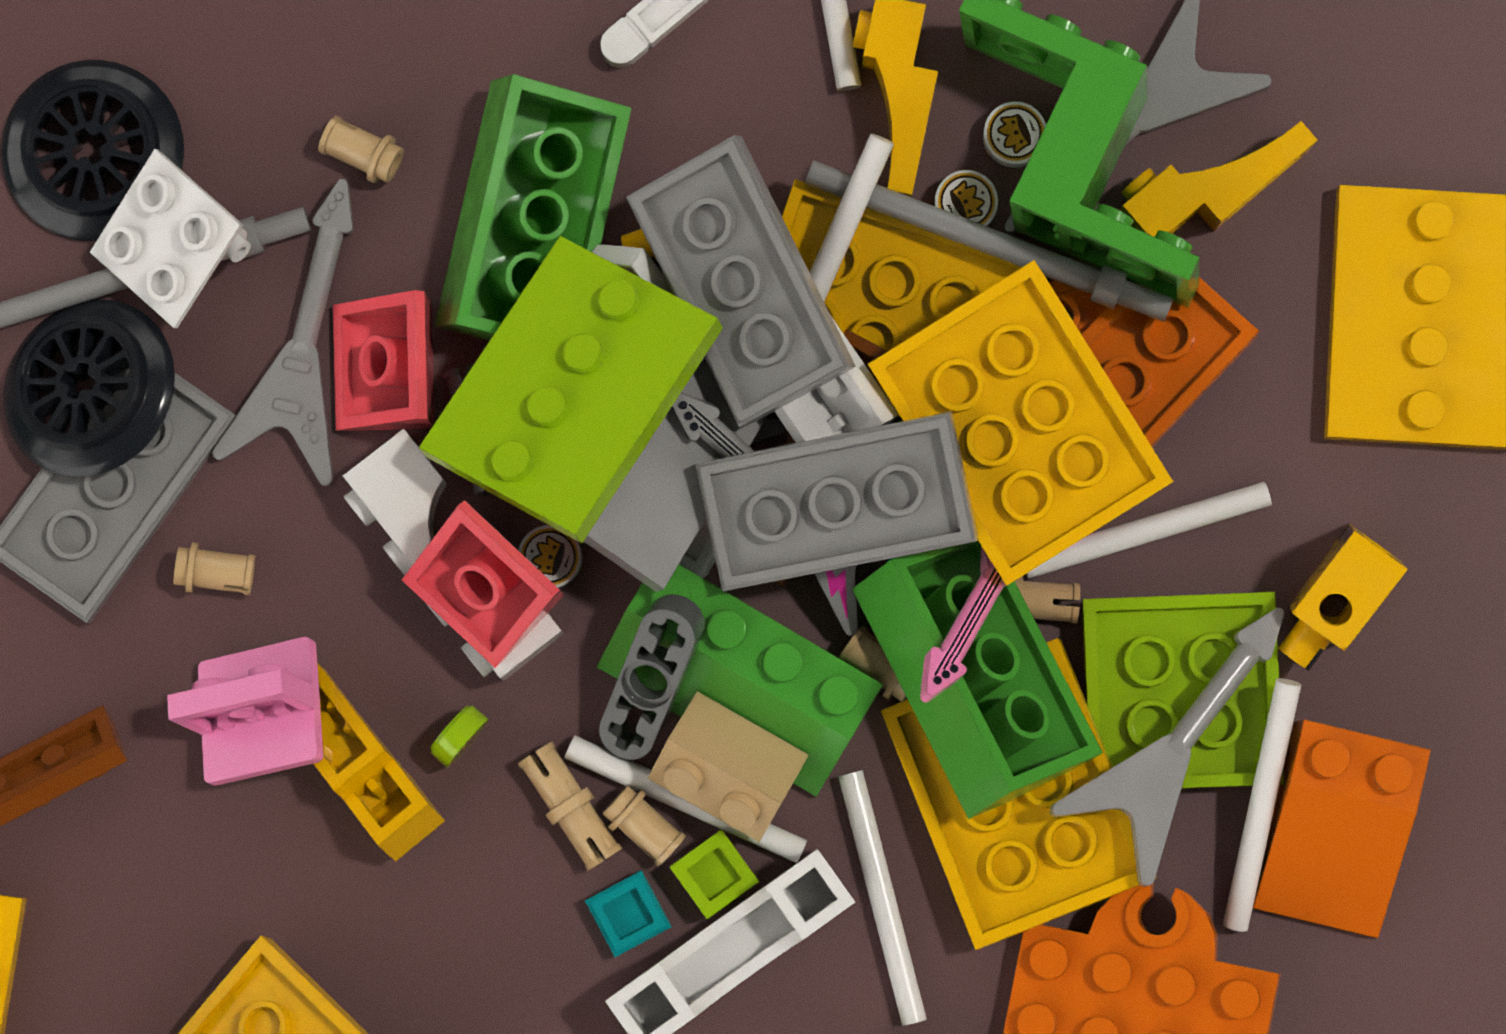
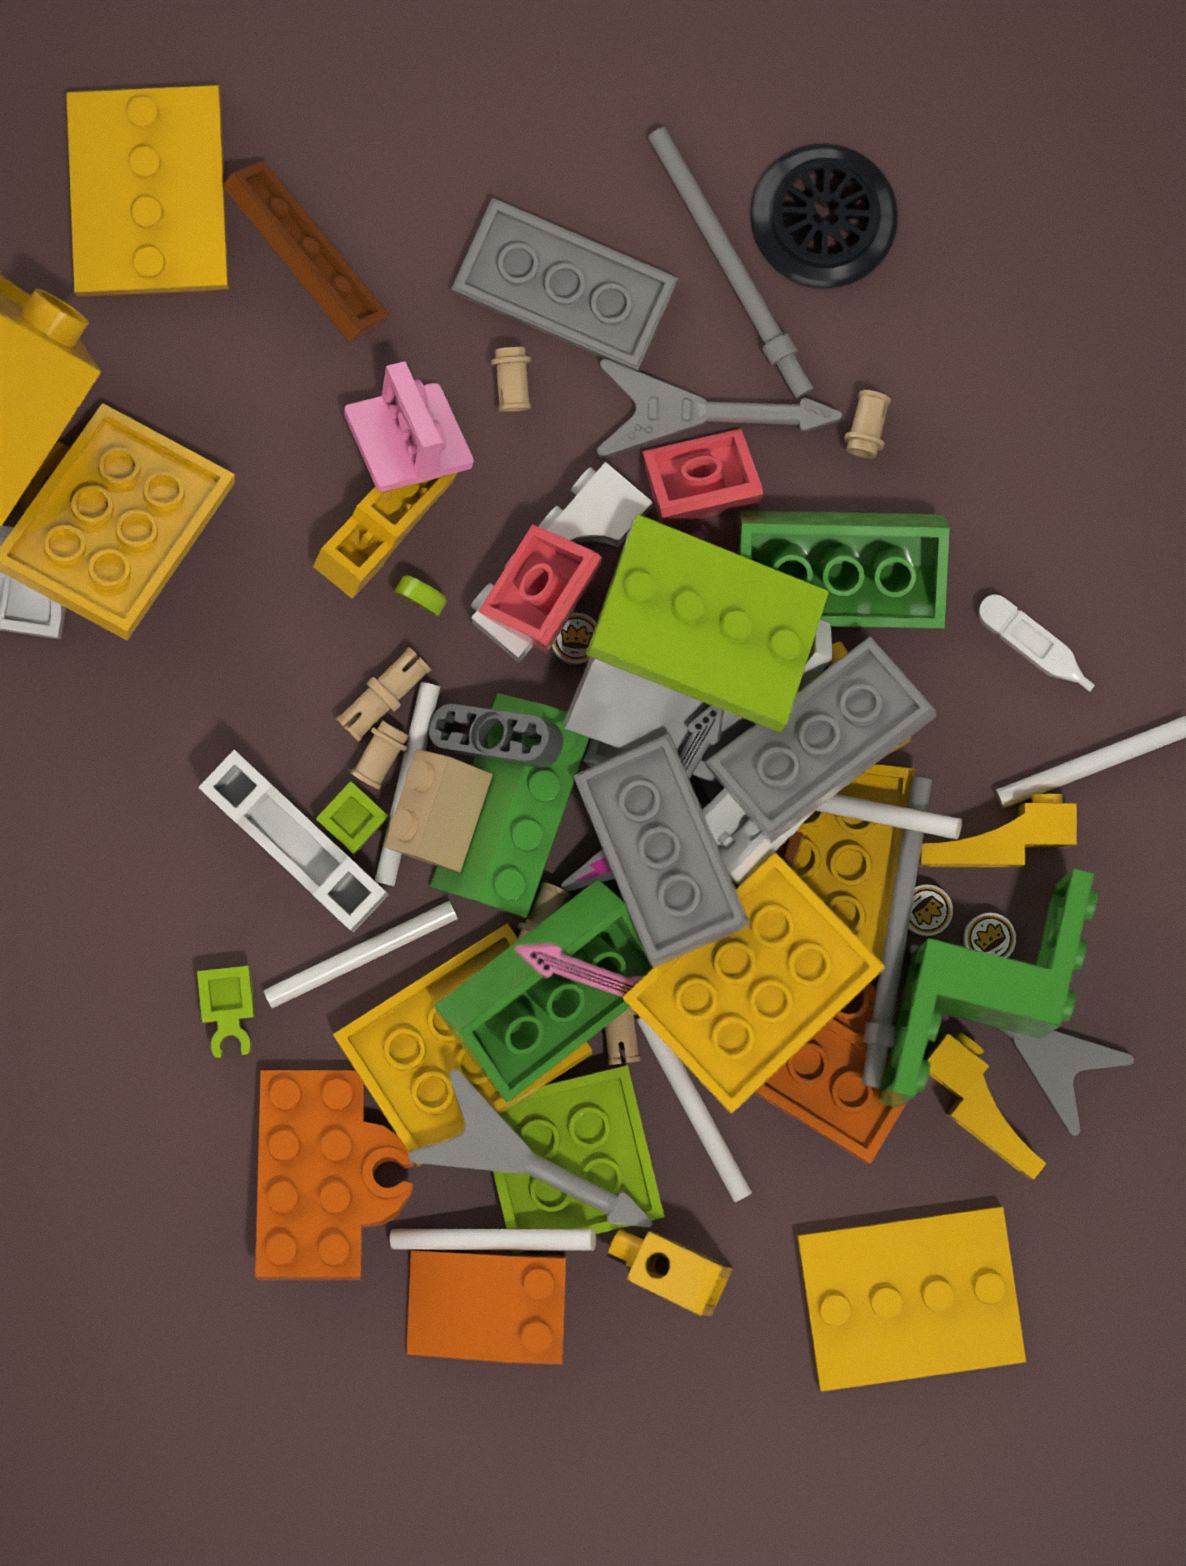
camera: 70 degrees right, 0 degrees up
(137, 416) = (618, 292): black piece -> none
(168, 239) = (764, 288): white hinge -> none
(628, 913) = (308, 757): teal tile -> none

